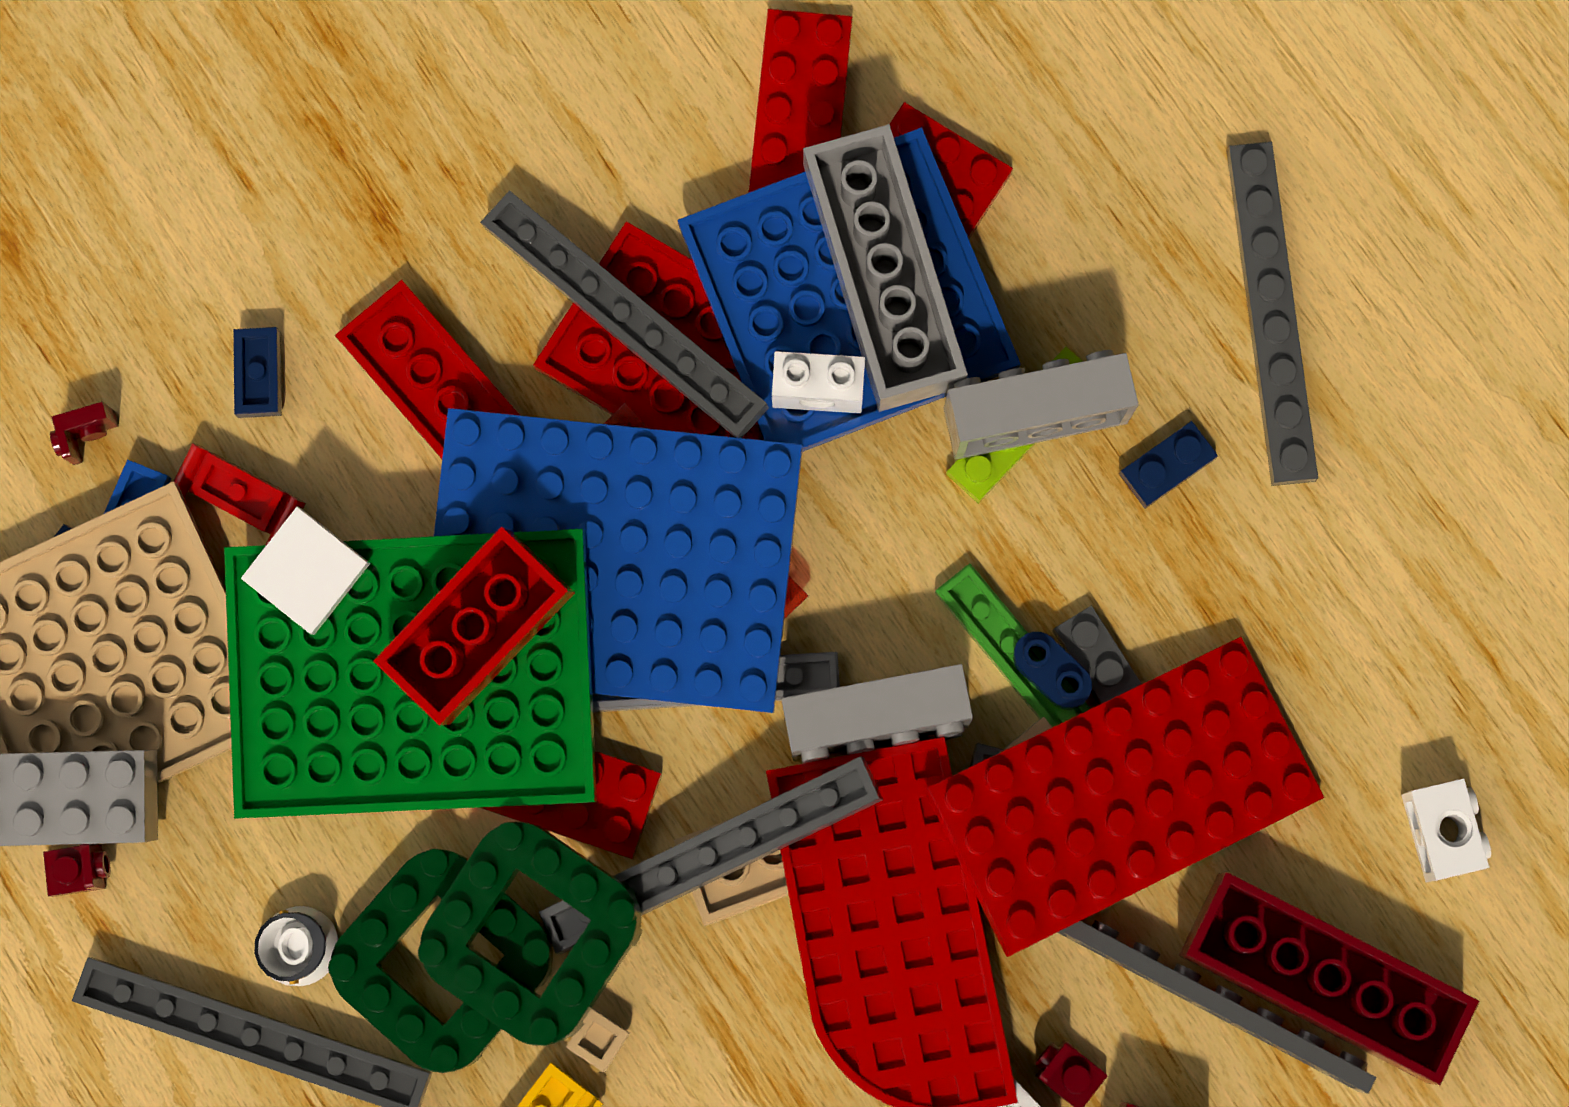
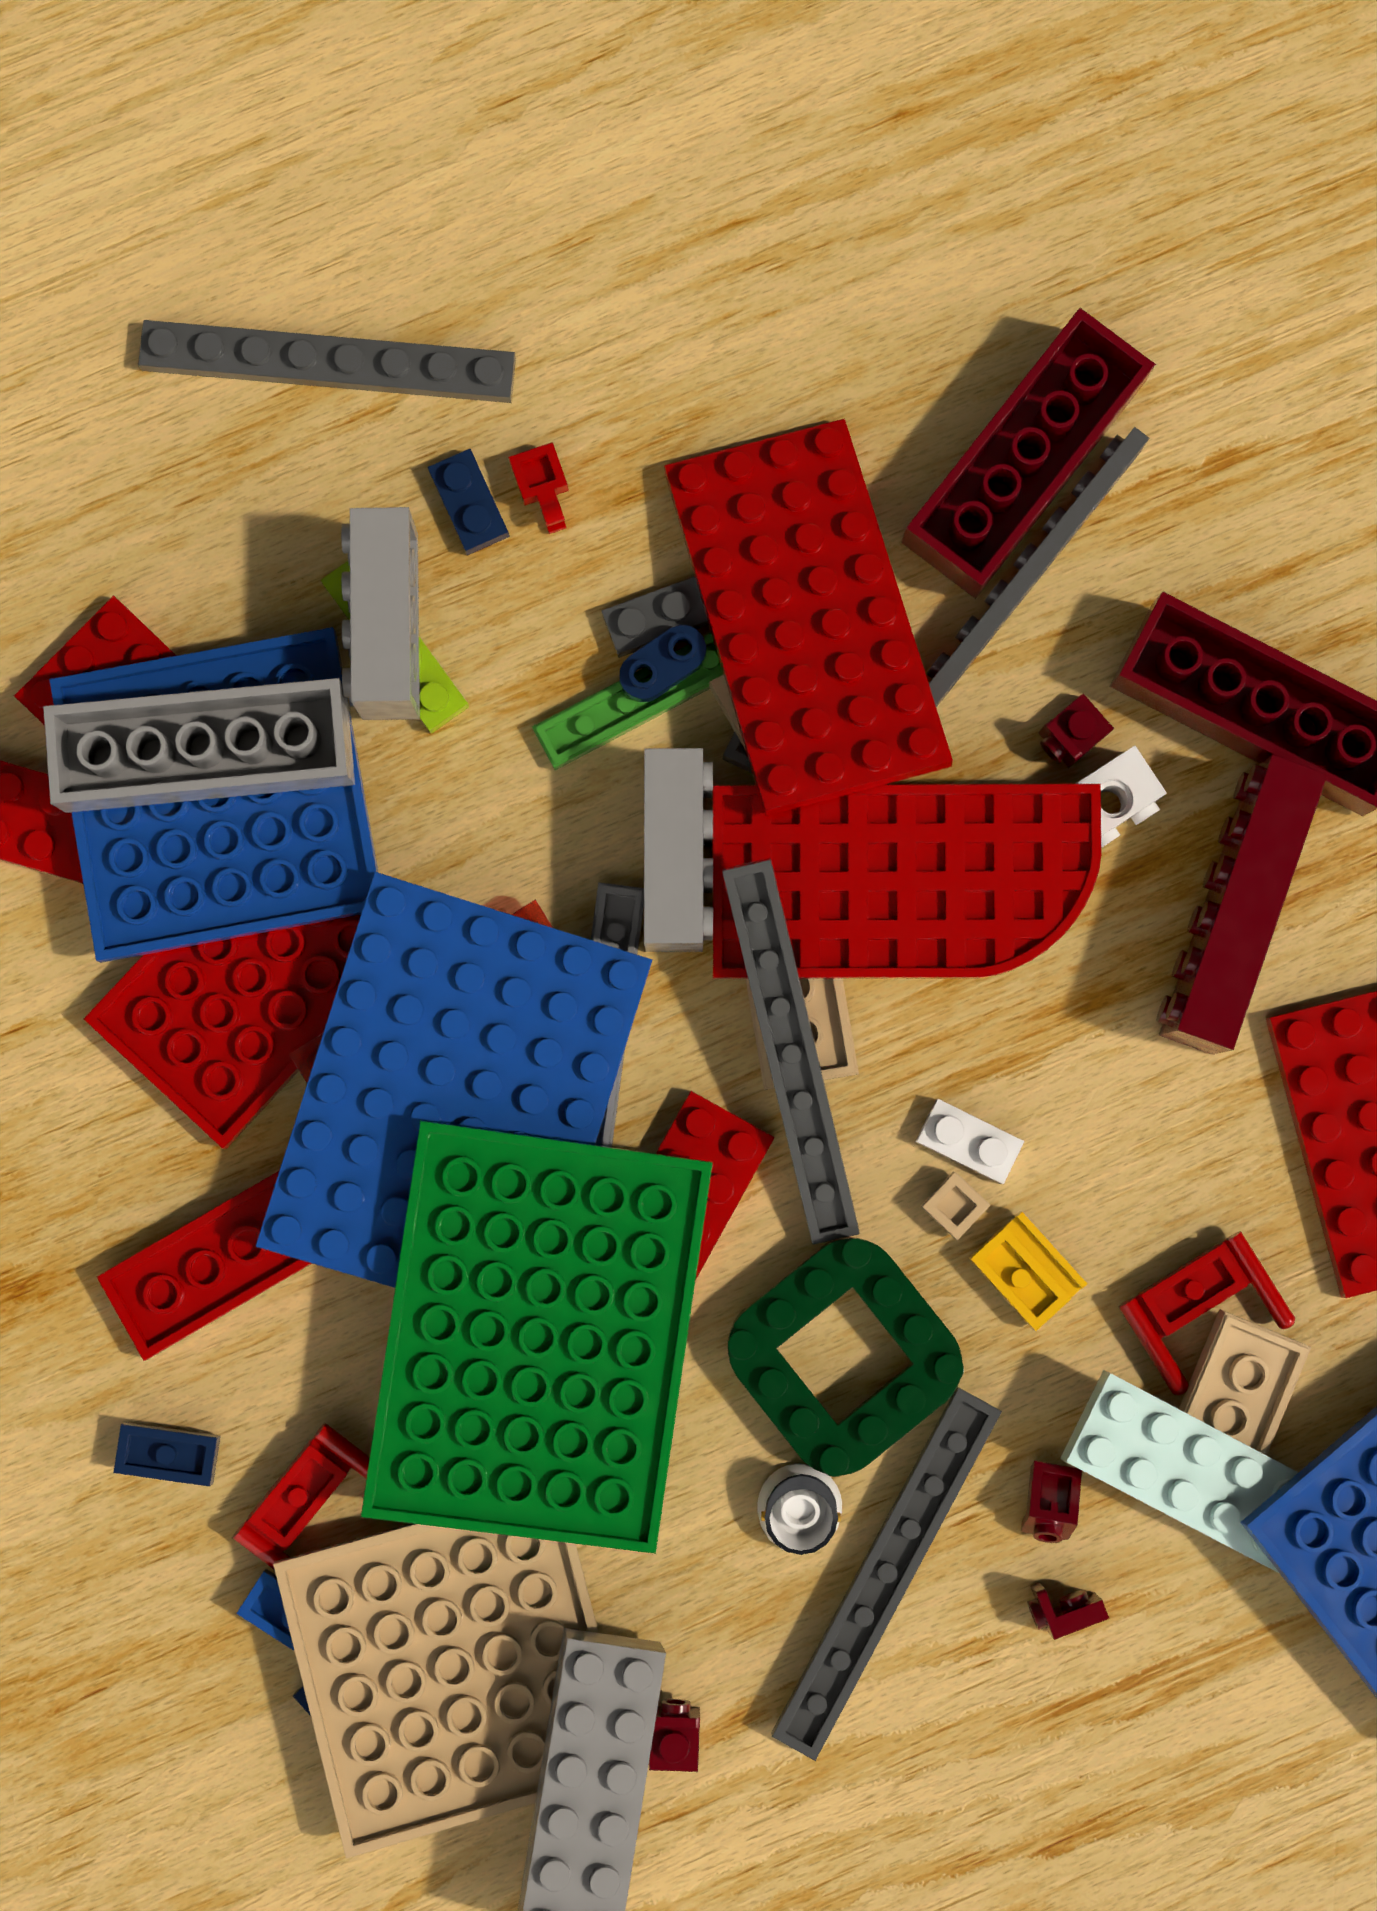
camera: 85 degrees left, 5 degrees up
(84, 423) = (185, 1654): dark red bracket -> none
(305, 570) = (405, 1430): white tile -> none
(474, 626) = (506, 1254): red brick -> none
(585, 972) = (888, 1305): dark green plate -> none
(625, 315) = (189, 1038): dark grey plate -> none
(661, 1043) = (969, 1141): none -> white plate
(818, 382) = (311, 840): white brick -> none
(1202, 525) = (540, 481): none -> red plate
(1436, 855) = (880, 322): white brick -> none

